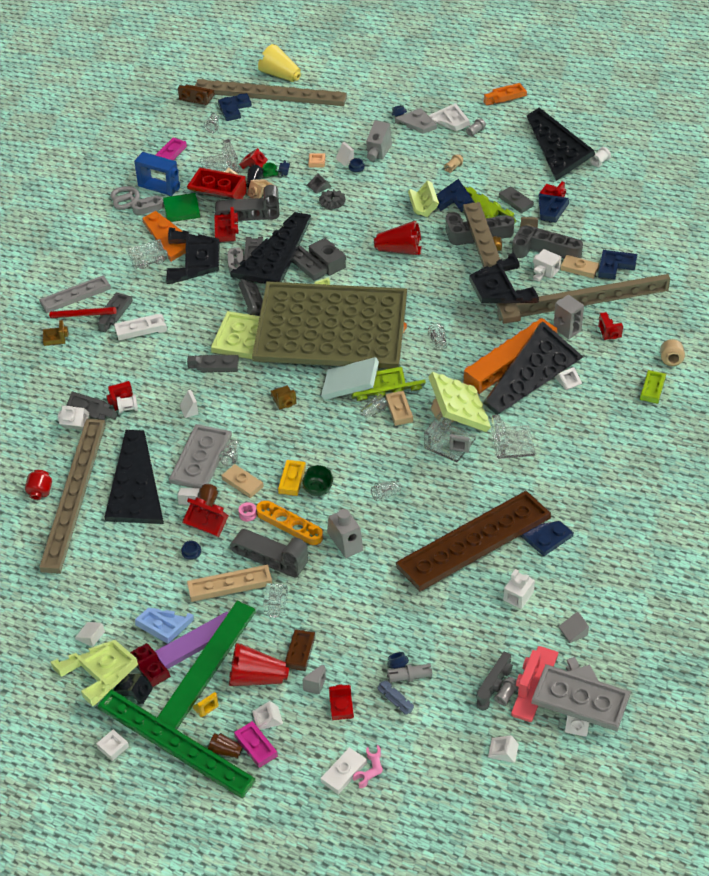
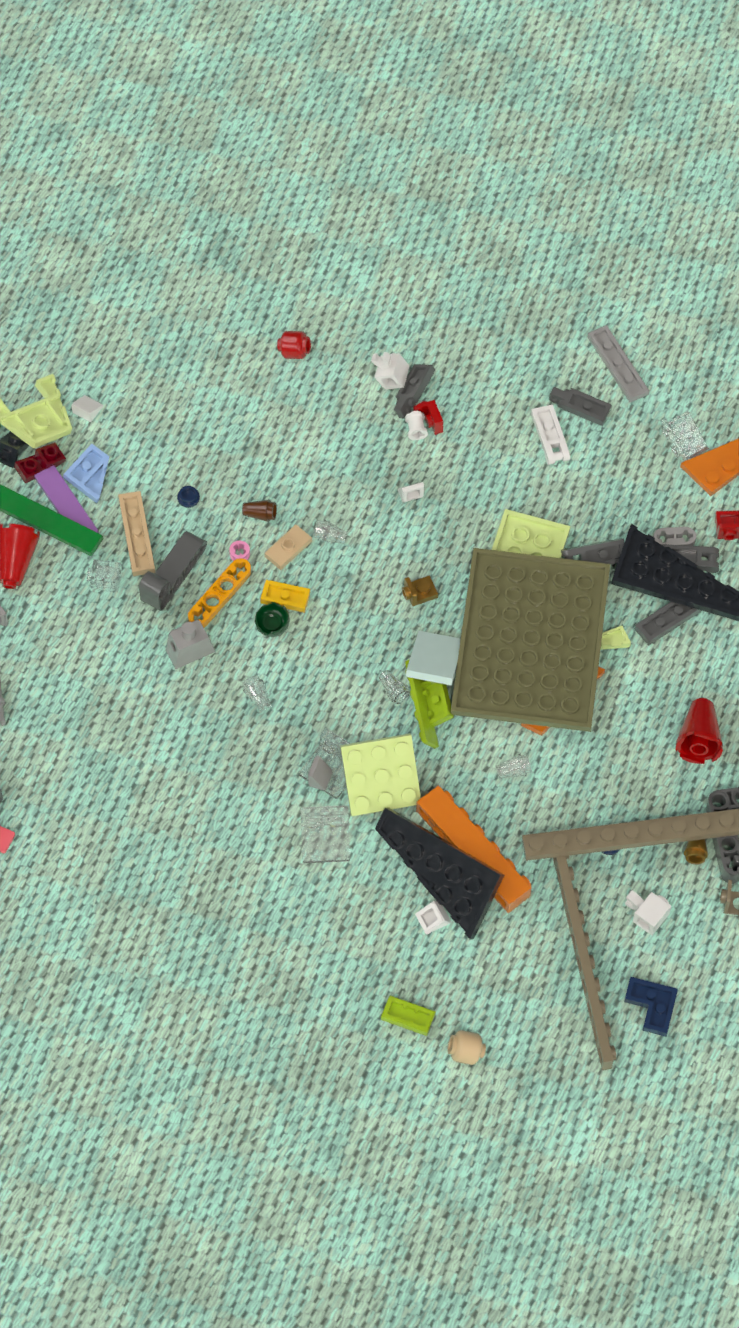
camera: 90 degrees right, 15 degrees up
(55, 335) = (541, 346): pearl gold bracket -> none
(72, 497) = (281, 380): dark tan plate -> none
(82, 312) = (568, 390): red bar -> none
(134, 486) = (288, 439): black wing -> none
(186, 493) = (271, 491): white slope -> none
(200, 256) = (684, 495): black wing -> none
(200, 456) = (339, 505): light grey tile -> none
(205, 517) = (228, 506): red bracket -> none
(213, 363) = (484, 517): dark grey hinge -> none
(300, 650) = (39, 599): reddish brown plate -> none
(328, 255) = (680, 632): dark grey brick -> none
(397, 660) = (12, 691): dark blue plate -> none
(399, 408) = (390, 714): tan plate -> none
(472, 540) = (171, 781): reddish brown plate -> none
(494, 286) = (575, 821): black wing -> none
(518, 589) = (92, 819): white brick -> none
(539, 239) = (693, 921): dark grey beam -> none
(547, 536) = (173, 861): dark blue wing -> none
(568, 316) = (530, 919): light grey brick -> none
(574, 628) = (36, 874): light grey slope -> none
(580, 266) = (652, 958): tan plate -> none
(608, 329) = (520, 972): red bracket -> none

